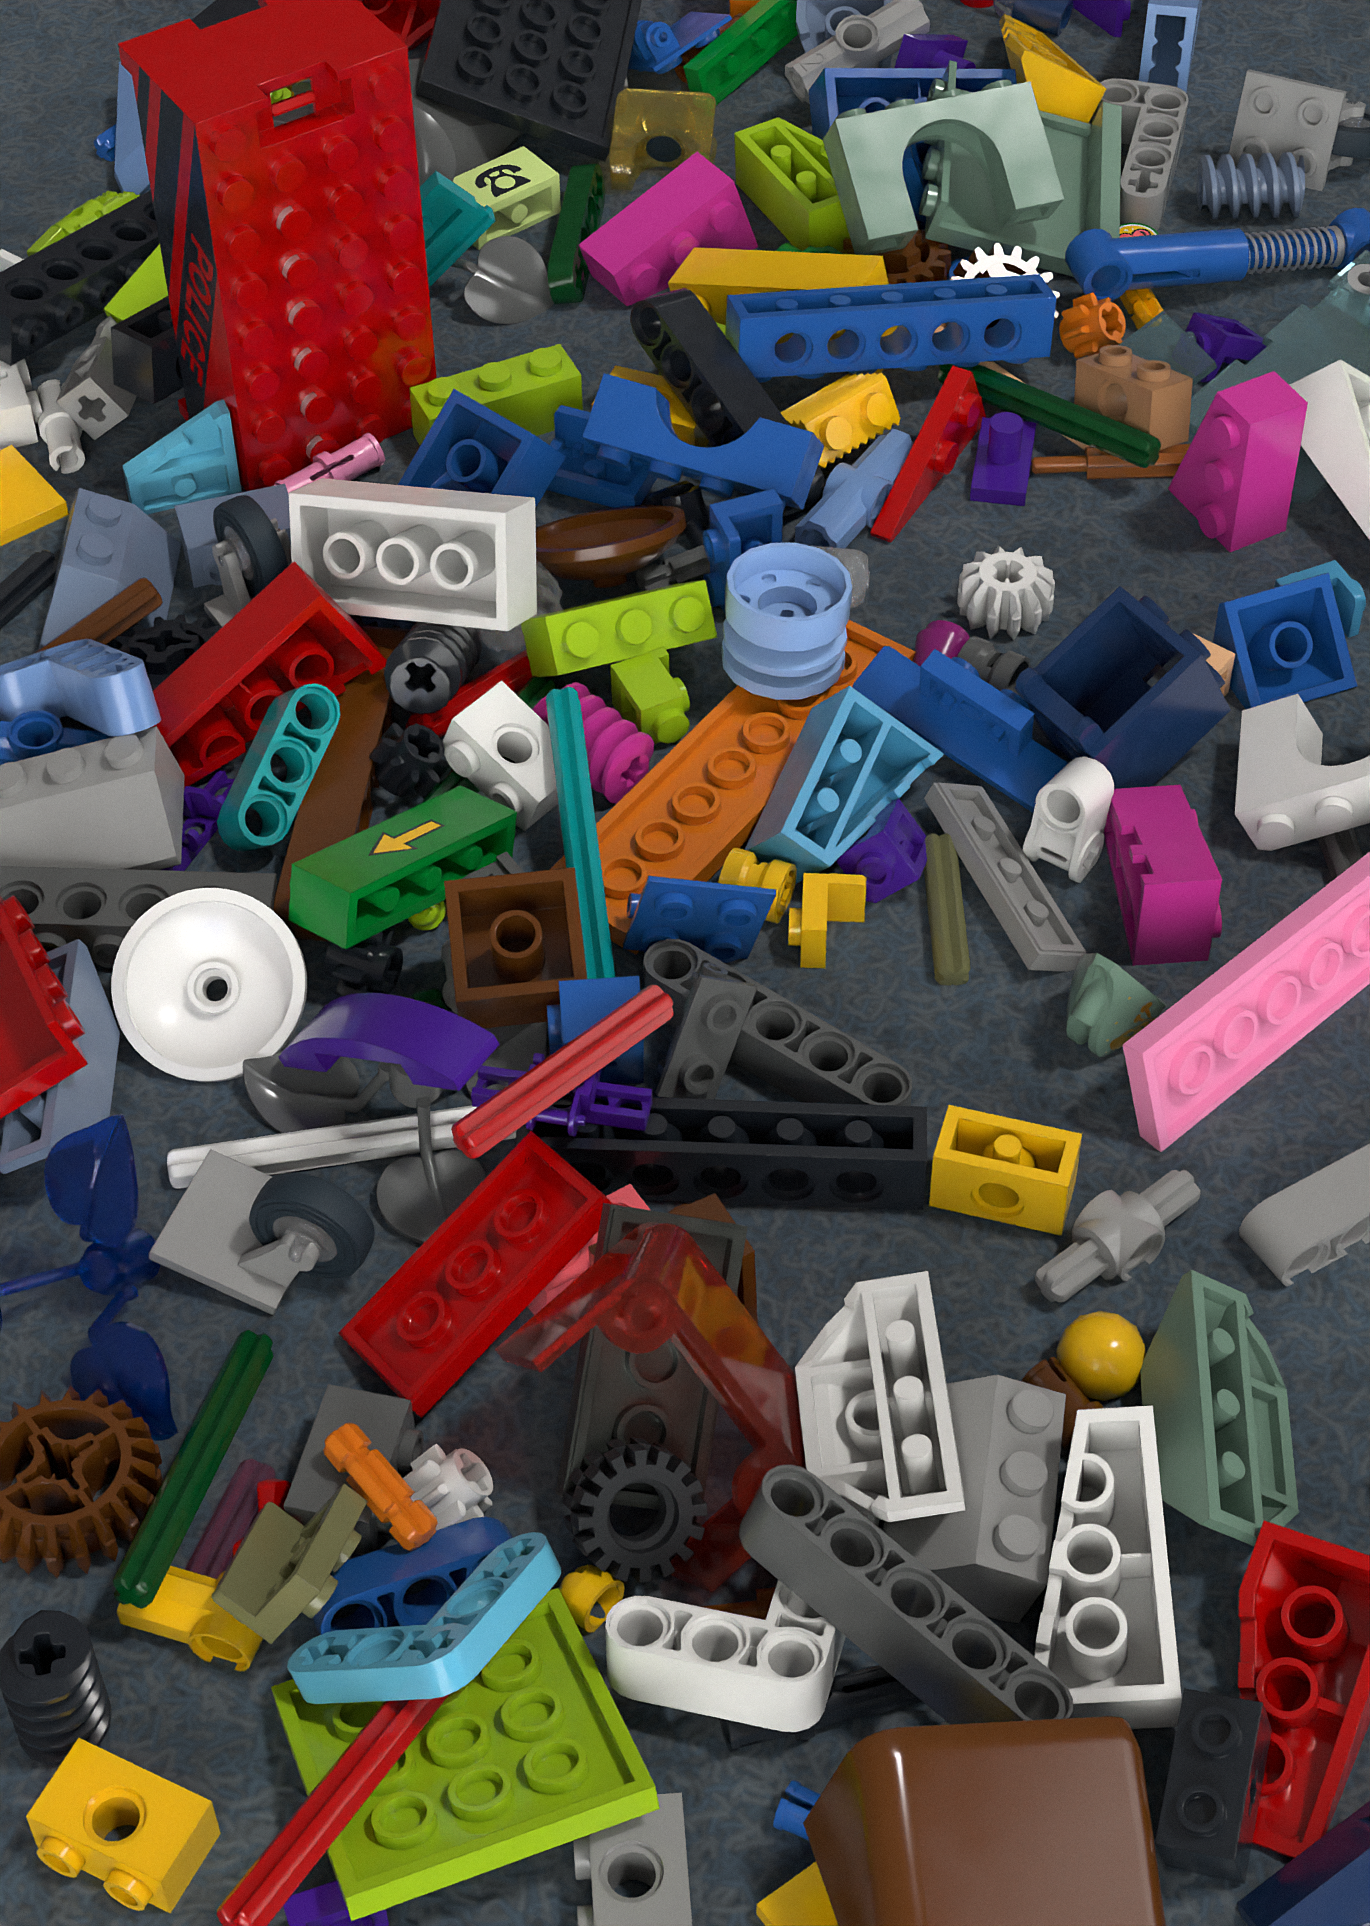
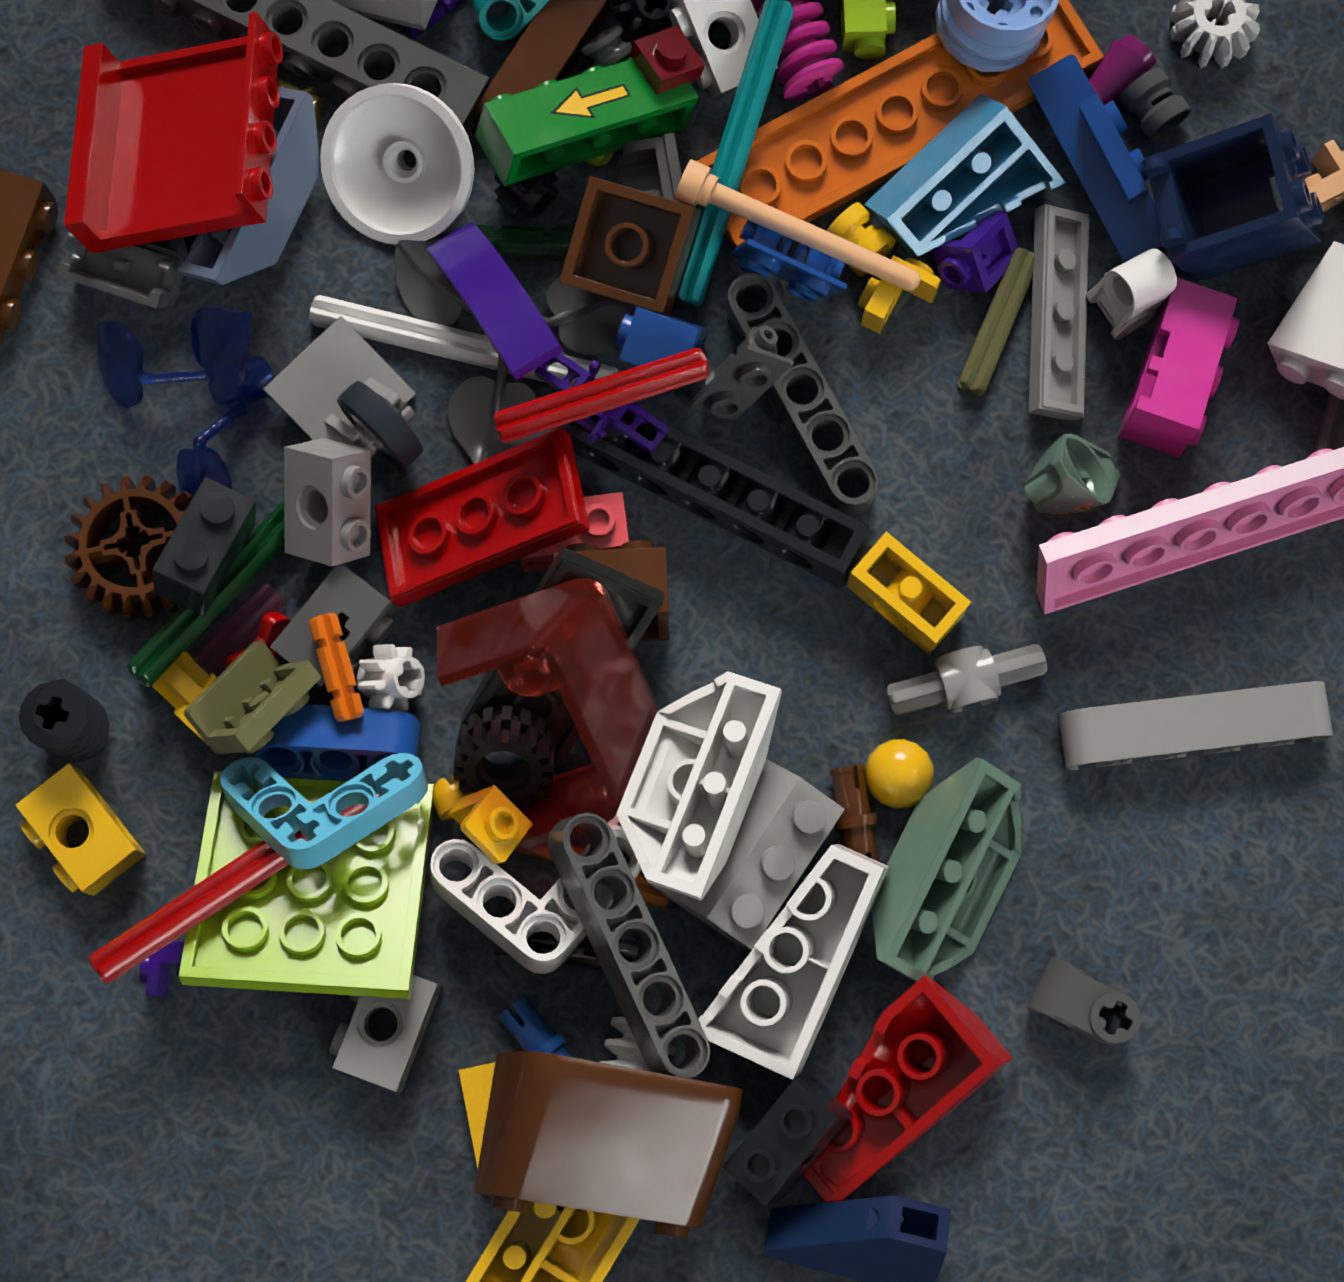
camera: 25 degrees right, 30 degrees up
(157, 1413) = (204, 546): none -> black brick
(255, 1309) = (327, 501): none -> light grey brick
(390, 806) = (607, 47): none -> dark grey bush
(466, 786) = (667, 59): none -> dark red plate
(635, 875) = (701, 188): none -> light nougat piece
(655, 1564) = (491, 822): none -> yellow bracket

